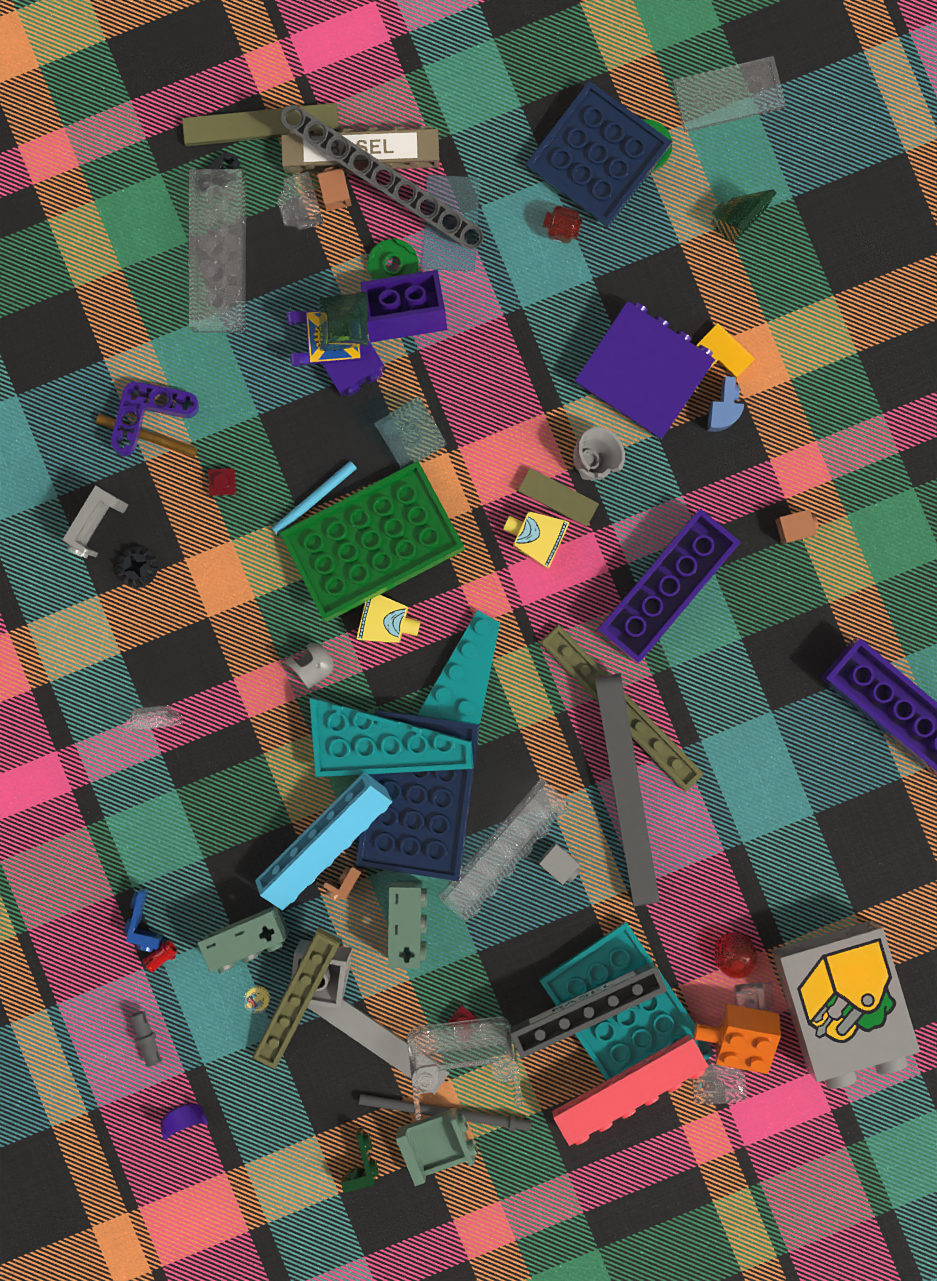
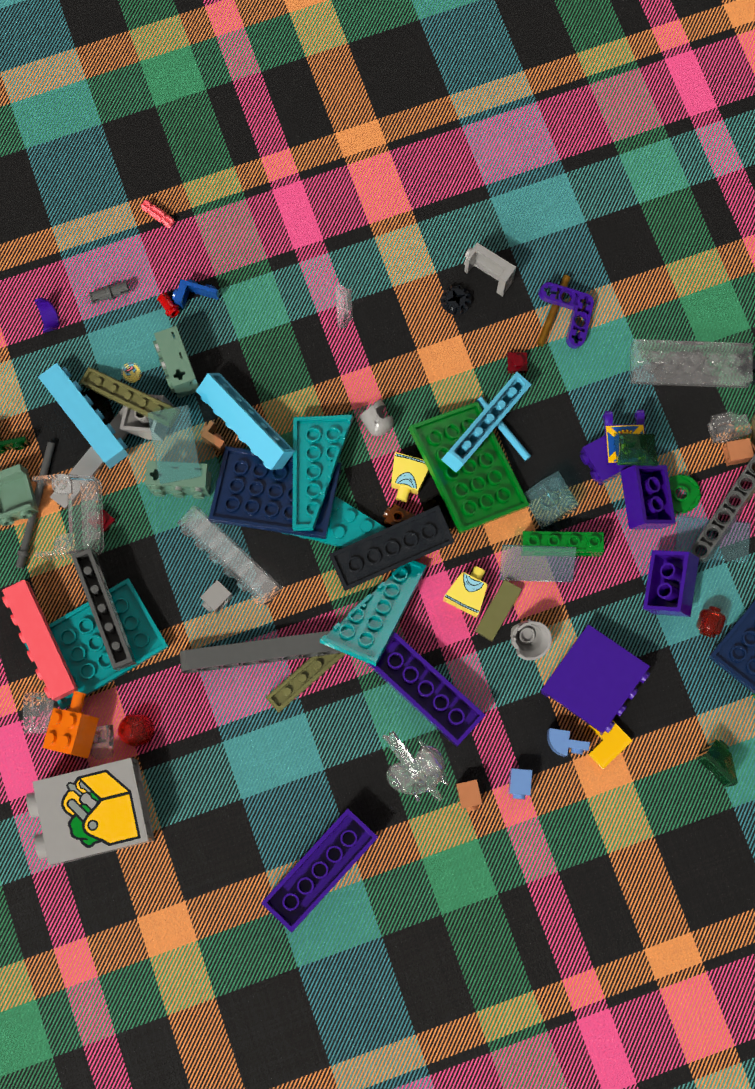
camera: 90 degrees right, 10 degrees down
(28, 981) = (157, 213): none -> coral axle
(313, 519) = (486, 422): none -> medium azure brick
(323, 1059) = (83, 416): none -> medium azure brick
(365, 933) = (174, 444): none -> clear light blue piece
(451, 623) = (391, 512): none -> reddish brown brick
(468, 416) = (586, 543): none -> green brick
(486, 637) = (392, 548): none -> black plate
(497, 448) = (537, 563): none -> clear light blue piece
(517, 275) = (671, 583): none -> dark purple brick
(586, 657) = (375, 618): none -> teal wing
(778, 463) = (520, 783): none -> medium blue brick
(779, 592) = (416, 774): none -> clear hair

